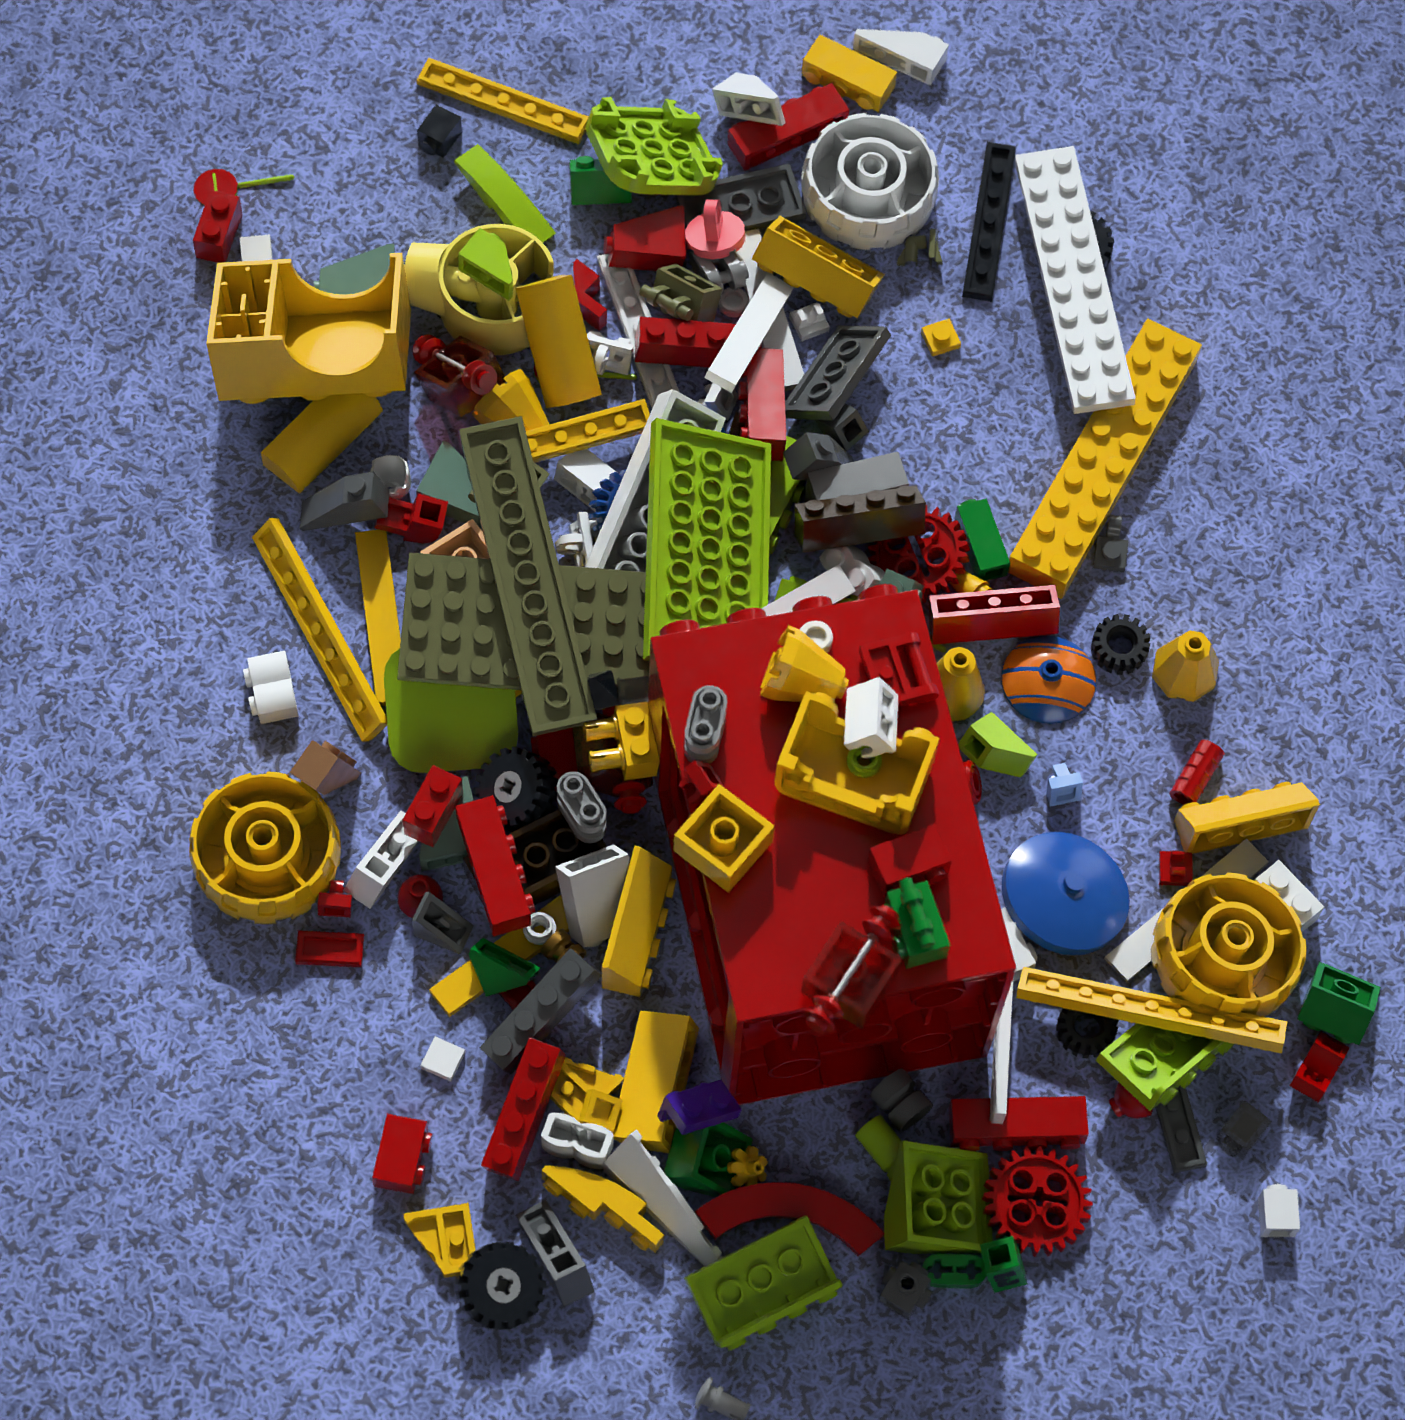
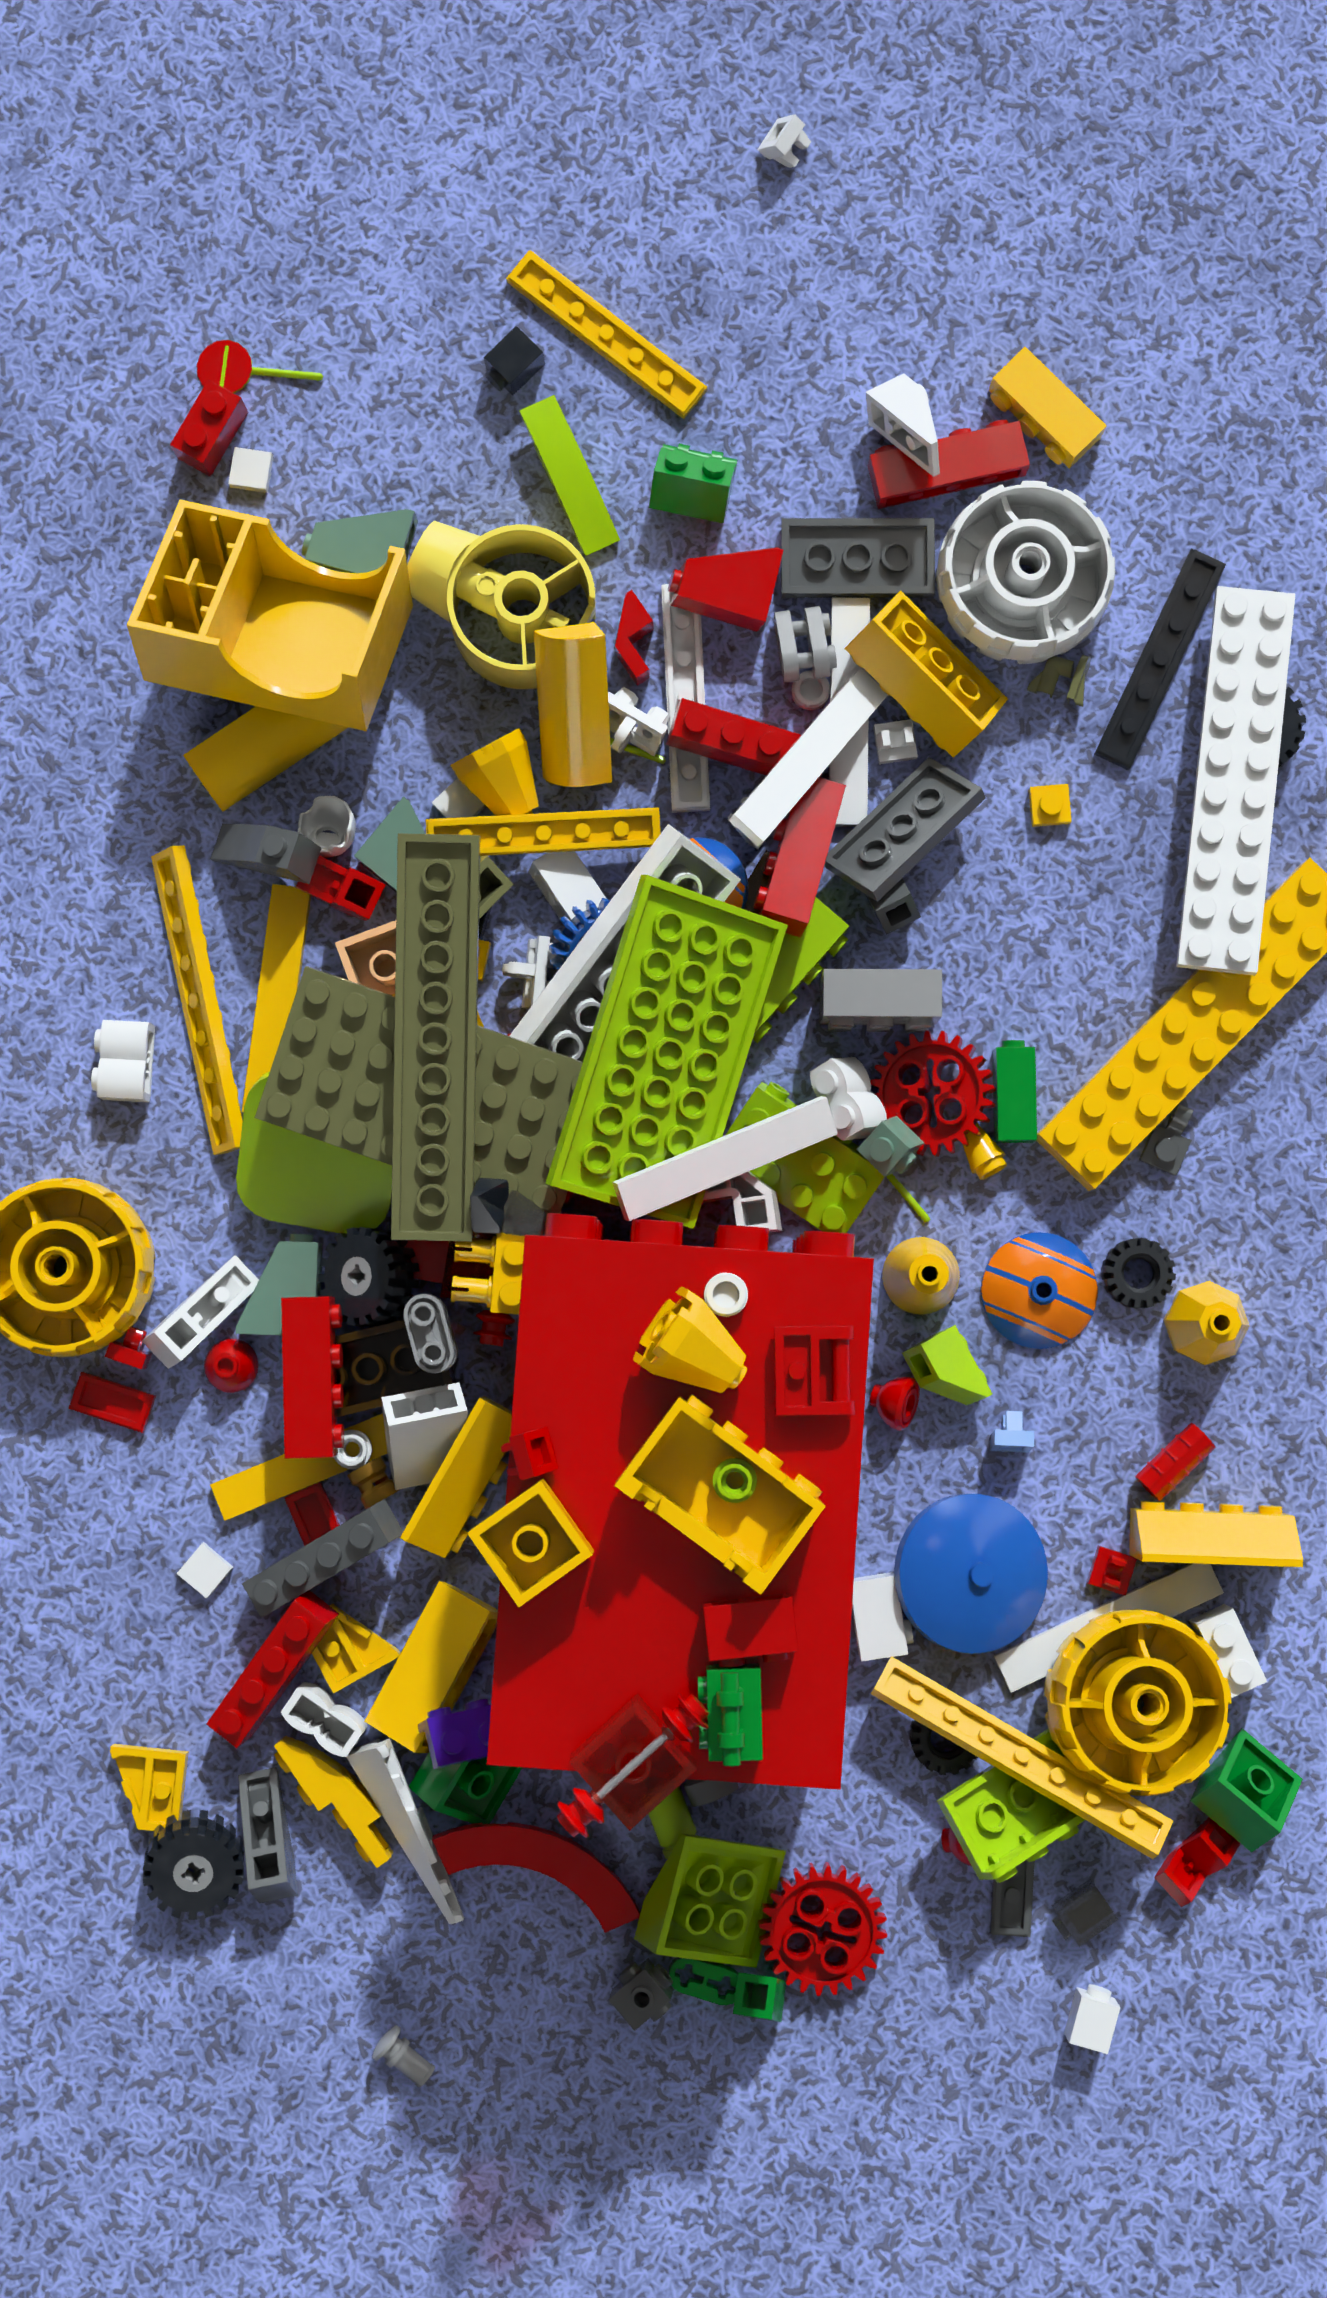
camera: 25 degrees right, 20 degrees up
(325, 767) = (151, 1197): medium nougat slope -> none
(401, 1154) = (126, 1675): red brick -> none
(432, 806) = (262, 1279): red brick -> none
(440, 924) = (243, 1414): dark grey slope -> none
(455, 373) = (443, 709): clear red brick -> none
(487, 262) = (510, 583): lime slope -> none
(499, 968) = (296, 1487): green slope -> none
(600, 1109) = (359, 1693): yellow plate -> none
(652, 149) = (765, 461): lime tile -> none
(683, 294) = (746, 675): olive brick -> none
(705, 724) = (552, 1382): light grey brick -> none
(715, 232) = (810, 601): coral tile -> none
(748, 1167) = (510, 1797): yellow plant -> none
(763, 1284) = (486, 1943): lime bracket -> none
(814, 453) = (846, 949): dark grey slope -> none
(859, 518) = (869, 1045): dark brown brick -> none
(871, 718) = (755, 1440): white hinge -> none
(905, 51) = (1131, 396): white slope -> none
(994, 614) = (997, 1199): red brick -> none
(1001, 1049) = (855, 1697): white tile -> none
(1027, 1122) = (830, 1831): red brick -> none

